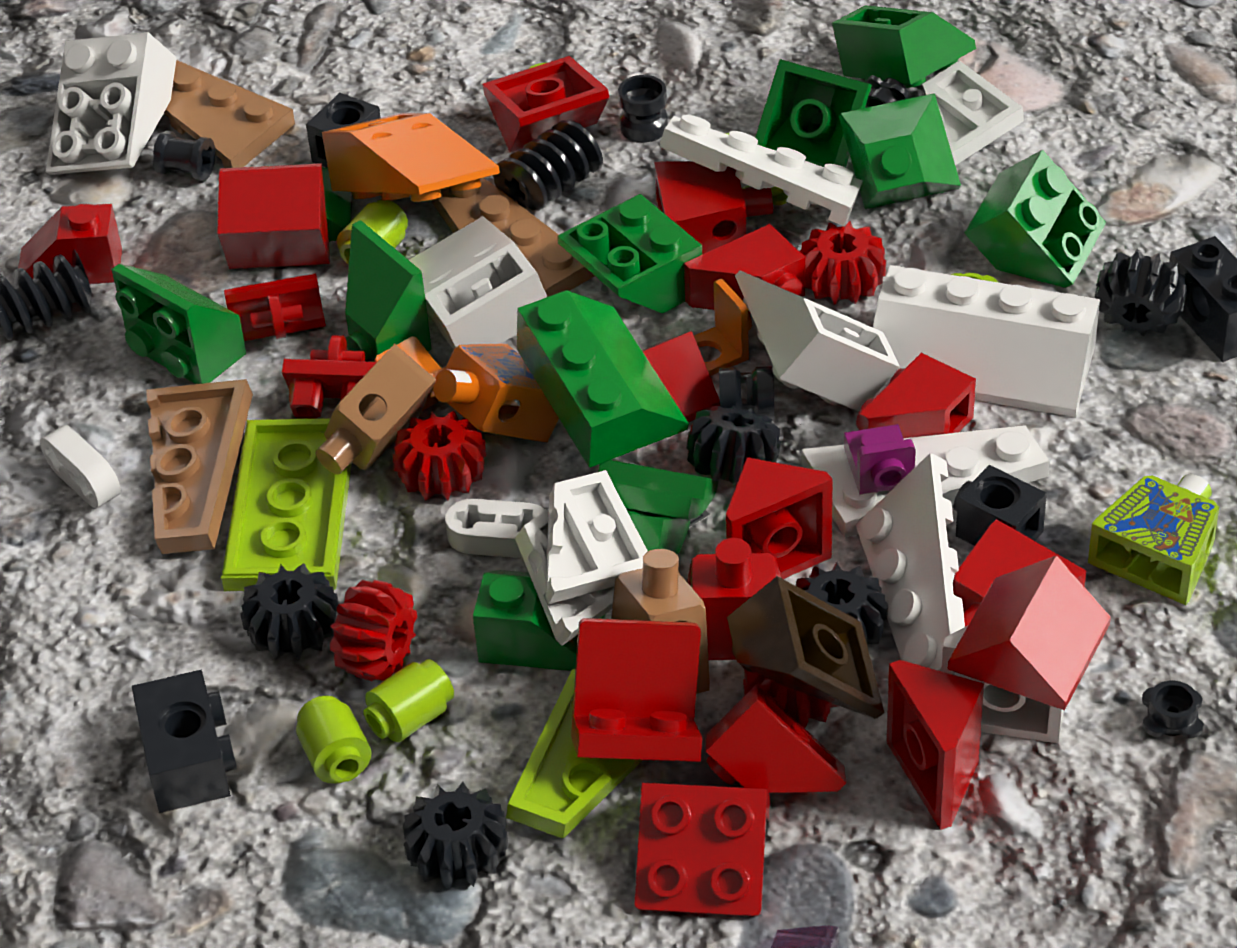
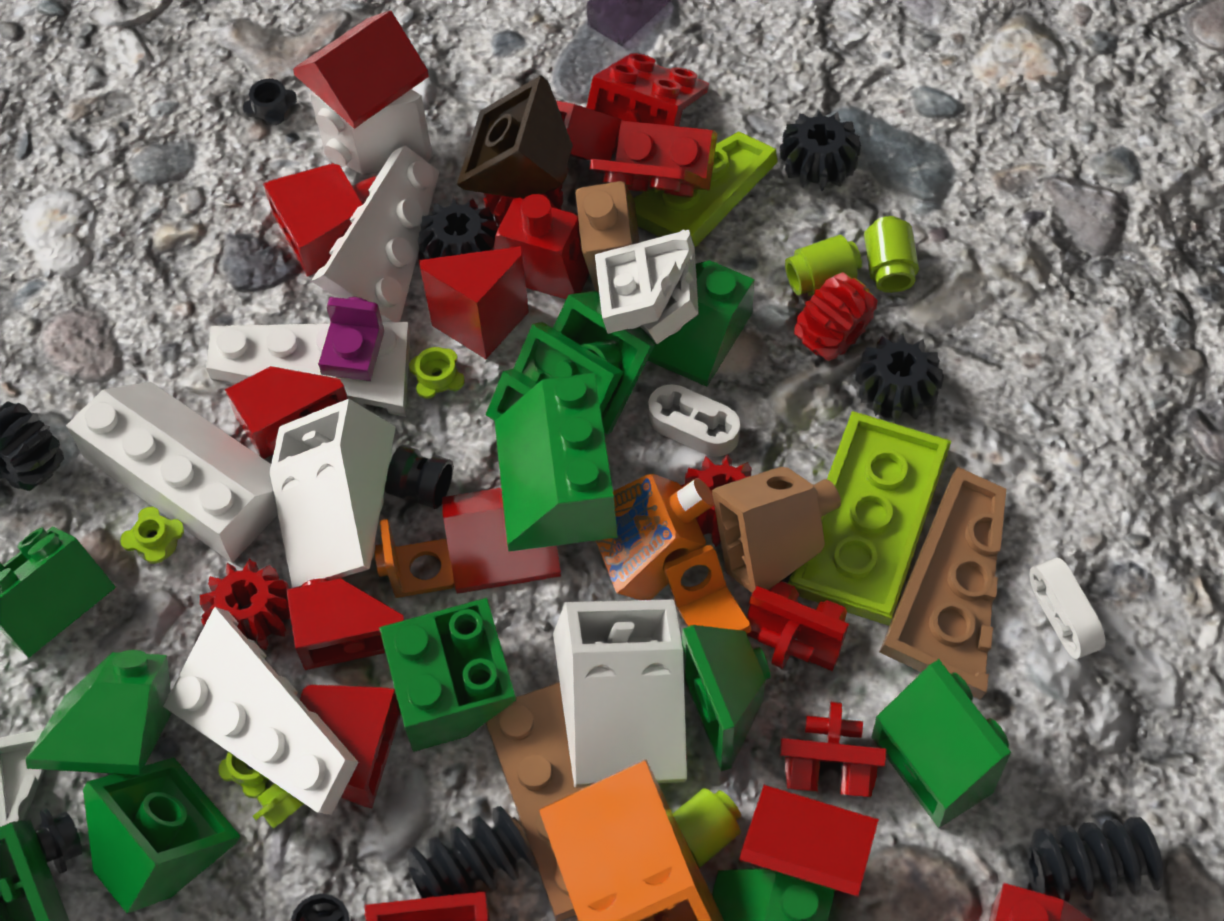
camera: 160 degrees left, 15 degrees up
(182, 742) = (1016, 311): black brick -> none
(726, 437) = (457, 392): black gear -> none
(935, 733) = (451, 86): red slope -> none
(998, 497) = (284, 282): black brick -> none
(1157, 535) = (176, 226): lime torso -> none

